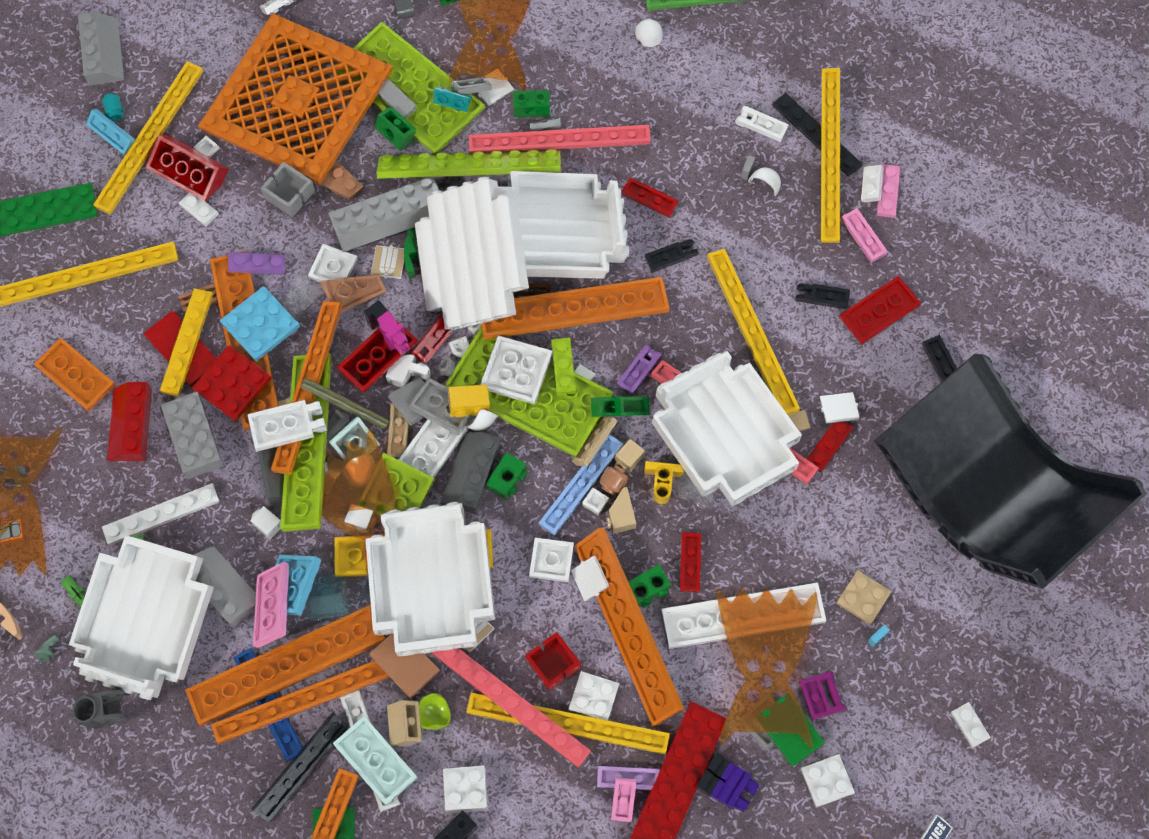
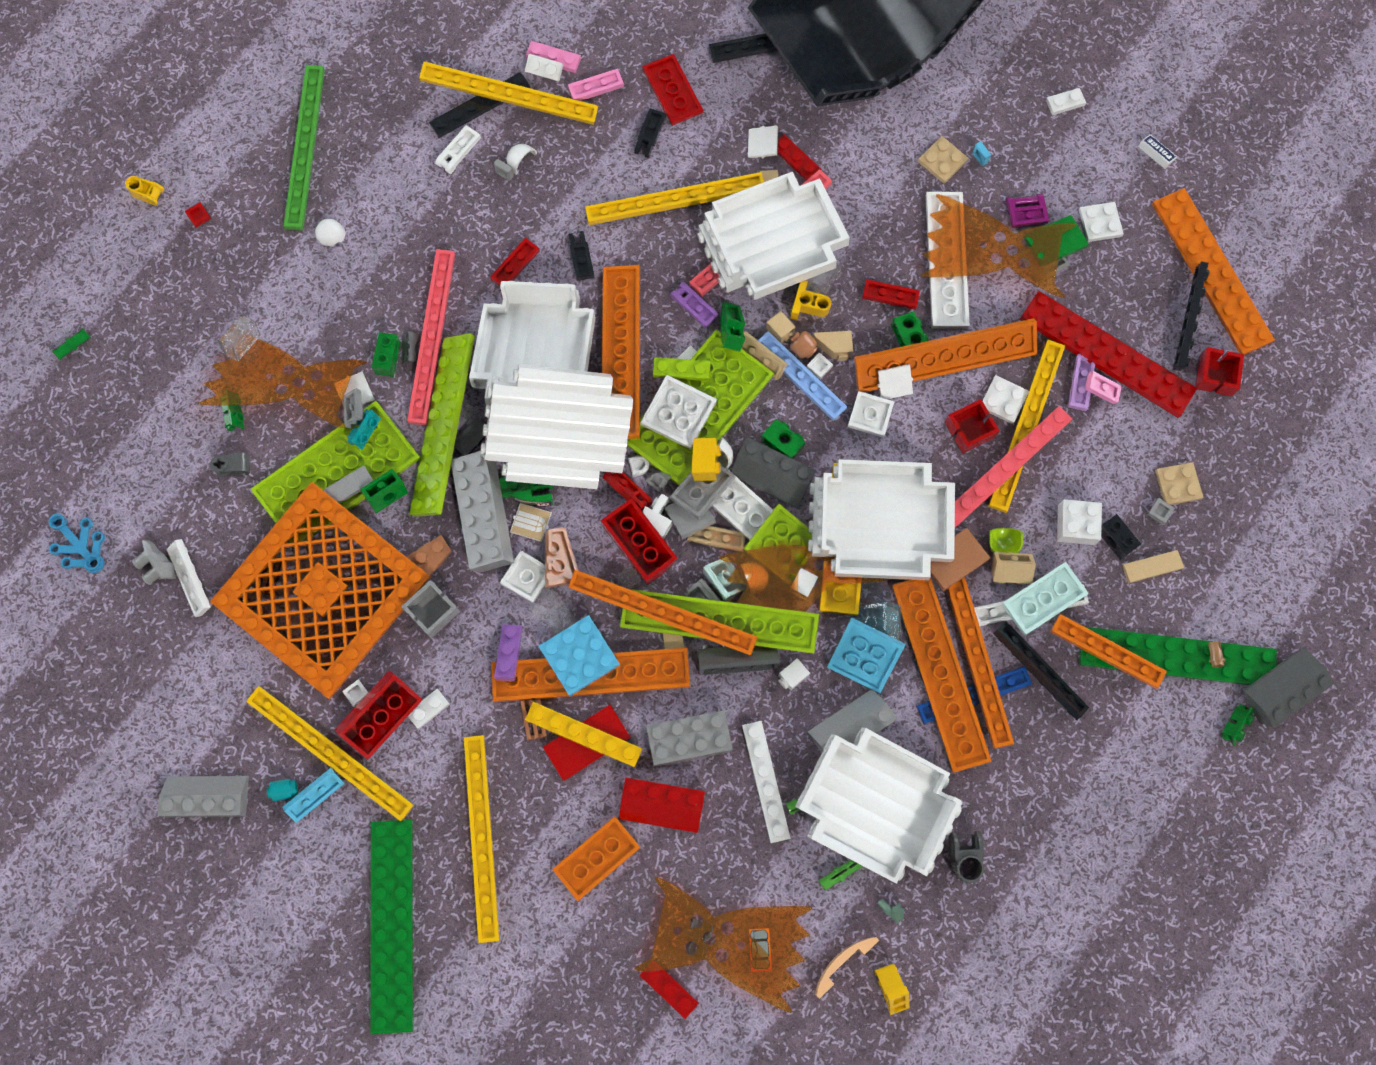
camera: 85 degrees left, 5 degrees up
(232, 383) = (640, 691): red plate -> none
(271, 605) = (884, 675): bright pink tile -> none
(285, 424) = (706, 635): white tile -> none
(344, 403) = (686, 578): olive axle -> none
(393, 334) = (620, 519): dark pink hips -> none
(732, 785) = (1098, 294): dark purple hips -> none

